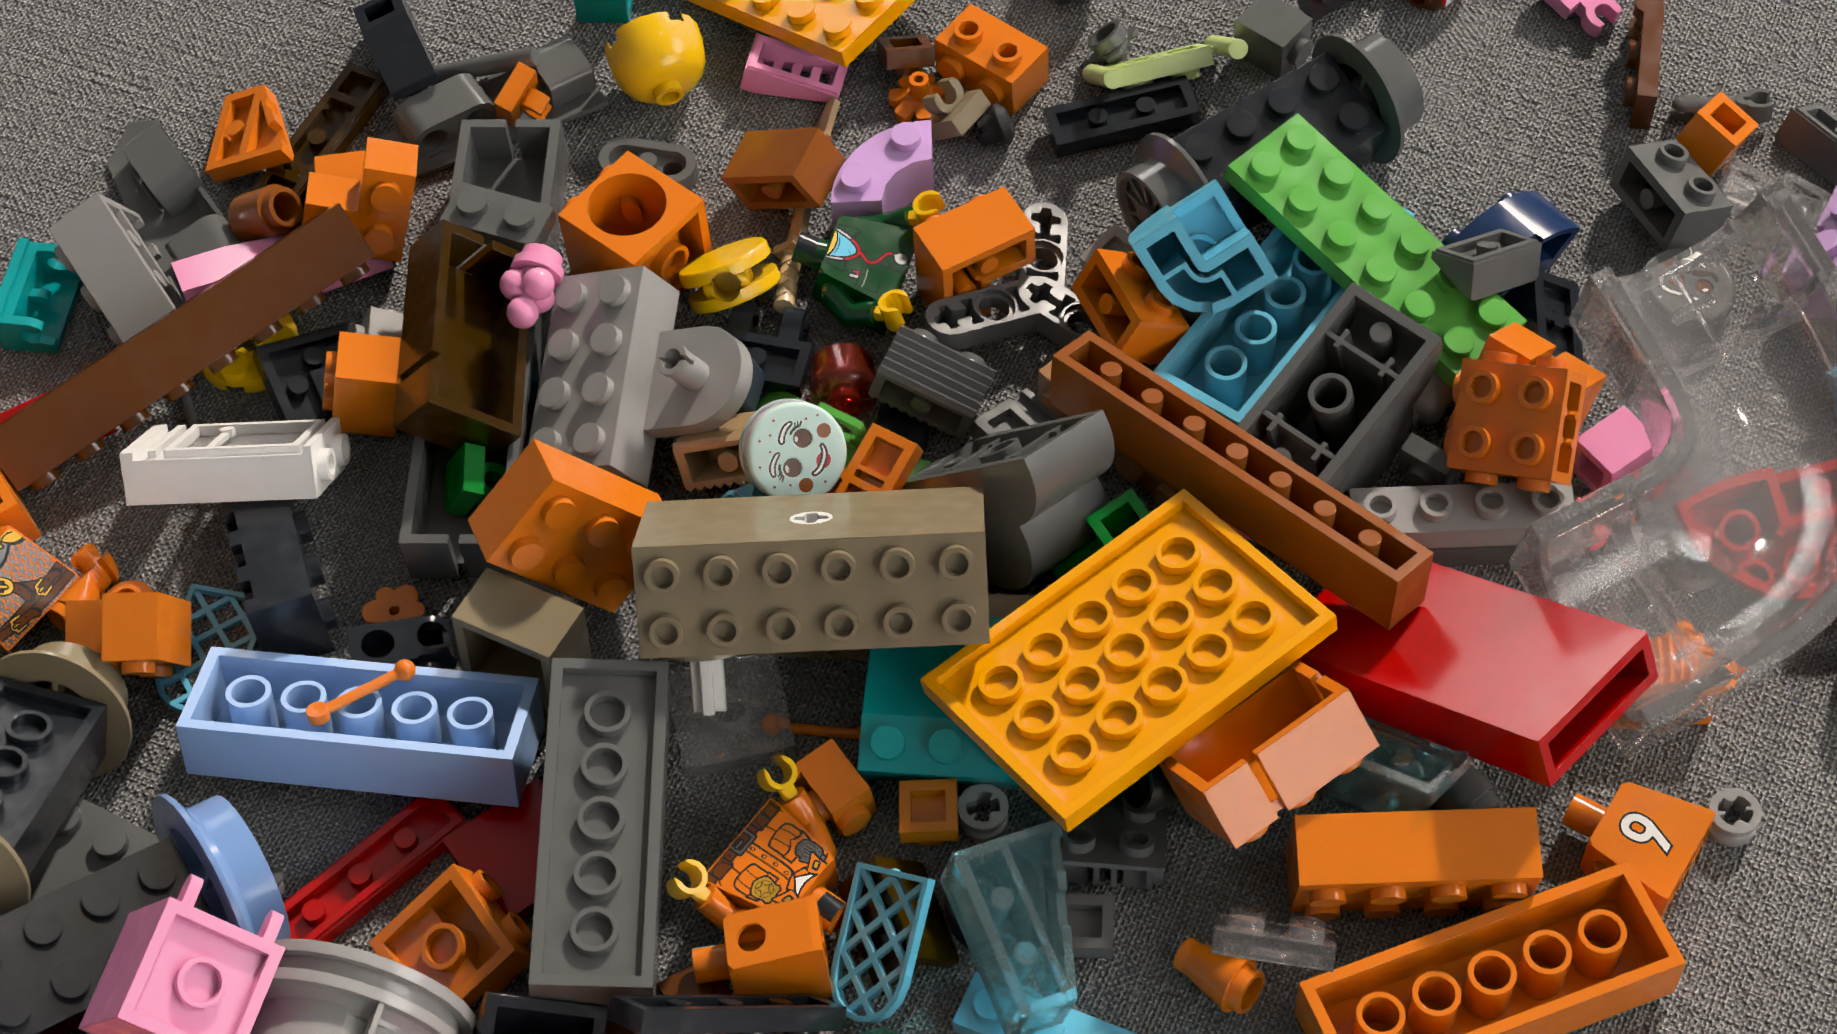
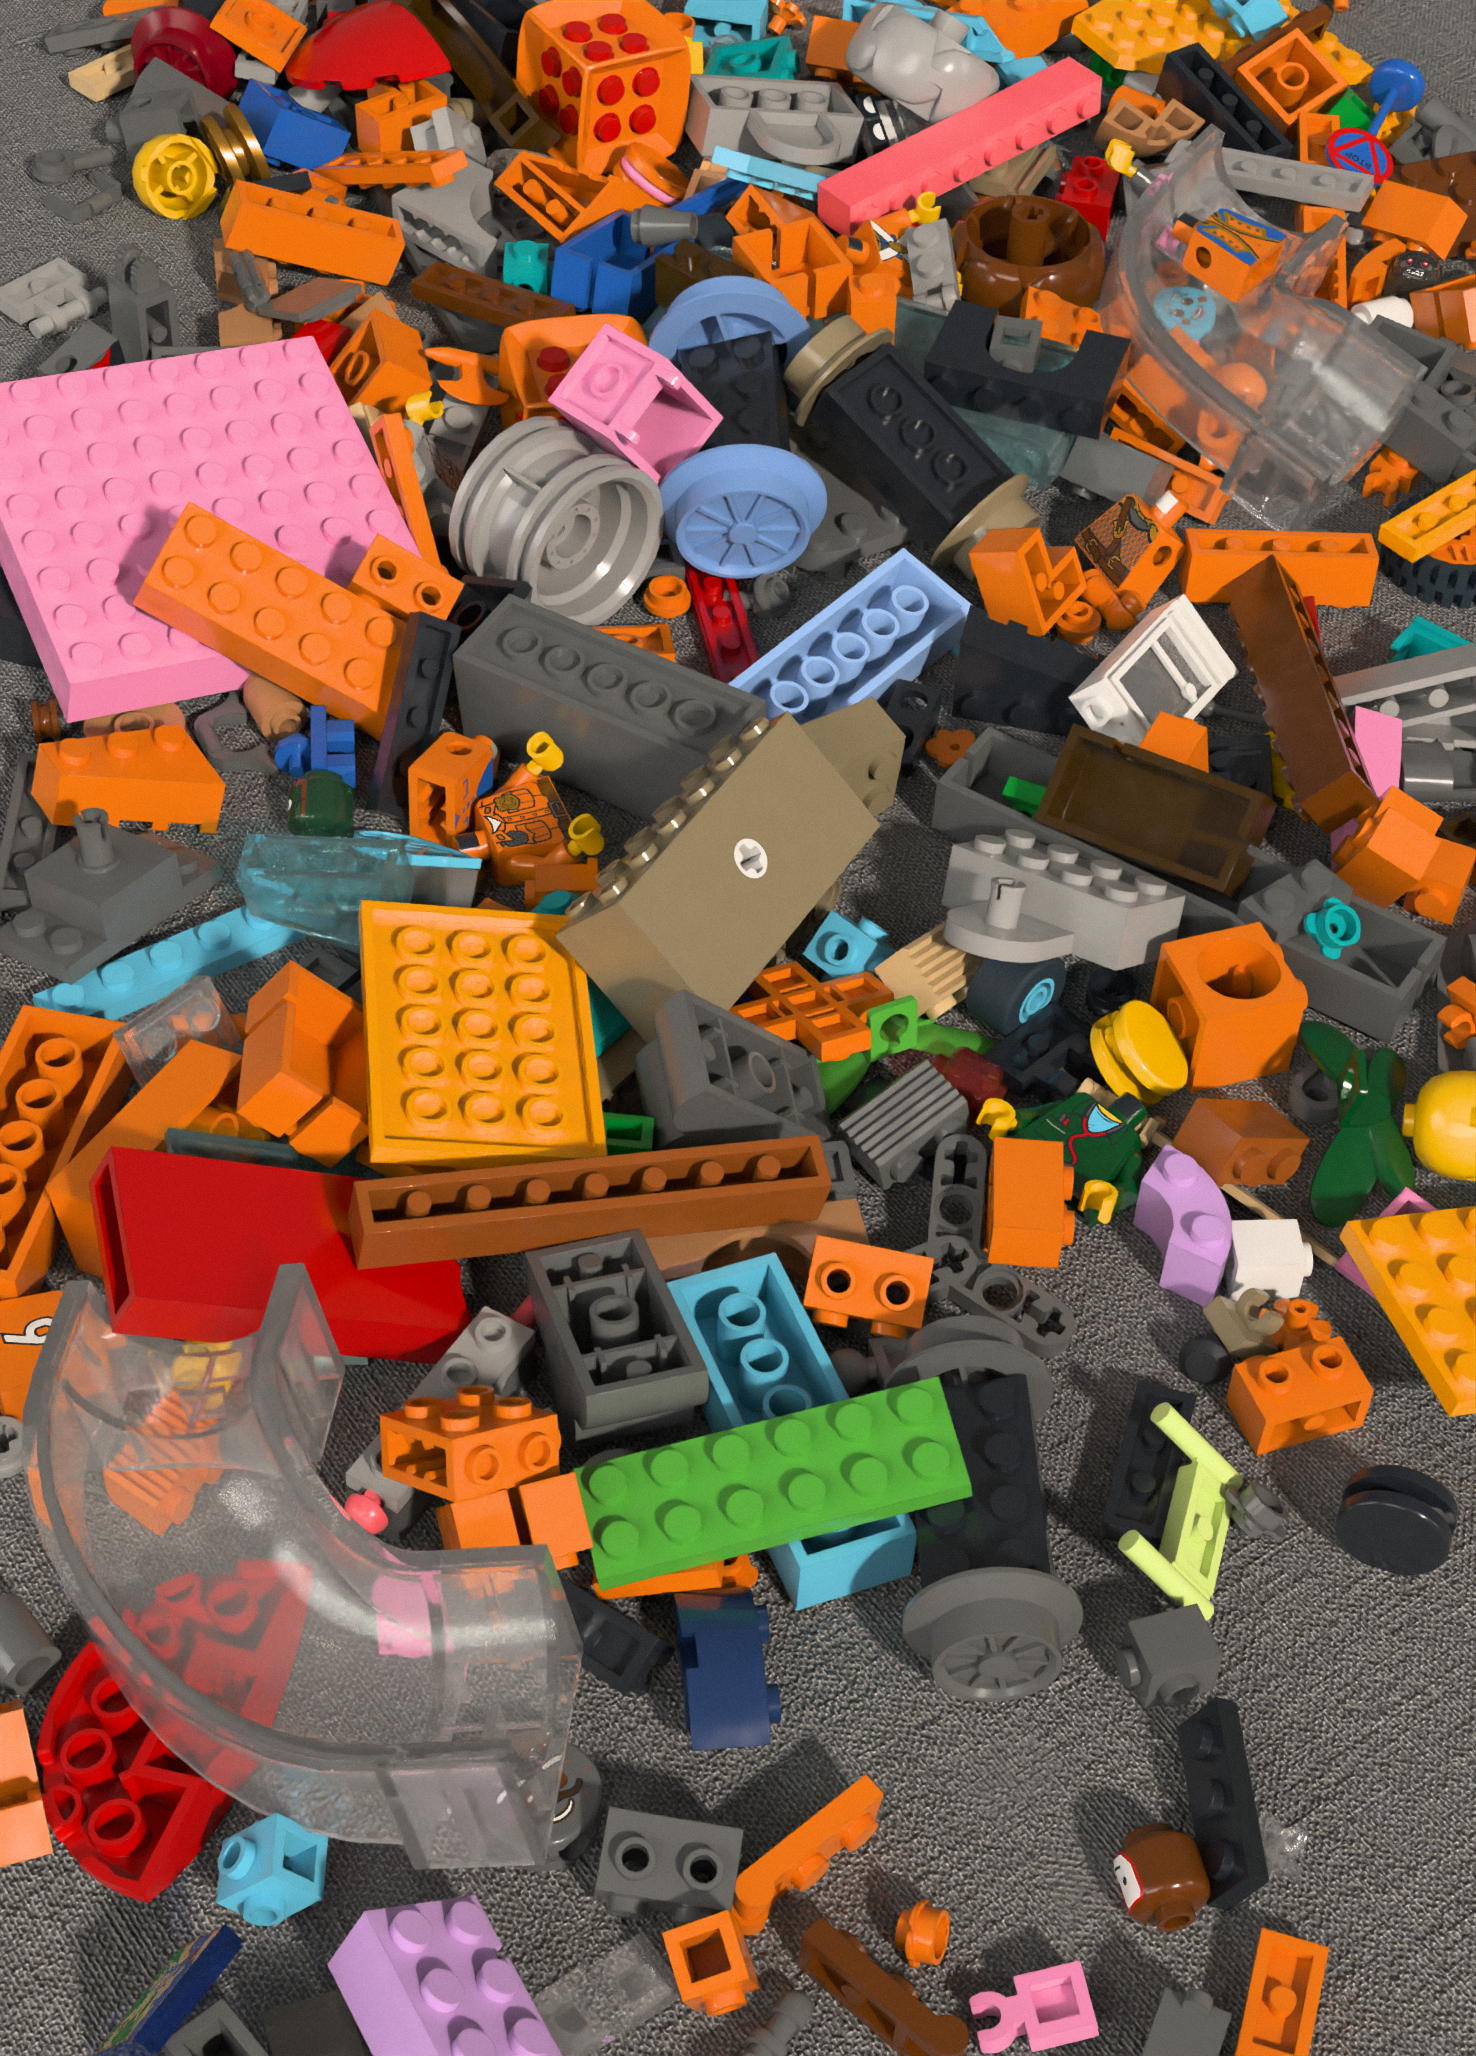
camera: 115 degrees right, 10 degrees down
(265, 213) = (1432, 790): dark orange brick -> none
(320, 712) = (852, 616): orange hinge -> none
(514, 179) = (1344, 923): none -> teal plate
(531, 283) = (1177, 859): bright pink piece -> none
(563, 525) = (908, 798): orange brick -> none
(689, 107) = (1368, 1136): none -> dark green piece
(792, 449) = (872, 949): light aqua head -> none
(870, 114) = (1267, 1258): none -> white brick
(905, 53) = (1361, 1328): reddish brown plate -> none
(1202, 252) = (857, 1316): medium azure brick -> none
(1489, 262) = (678, 1563): dark grey slope -> none
(1579, 140) = (804, 1853): none -> orange plate
(1580, 67) = (923, 1934): none -> orange plate

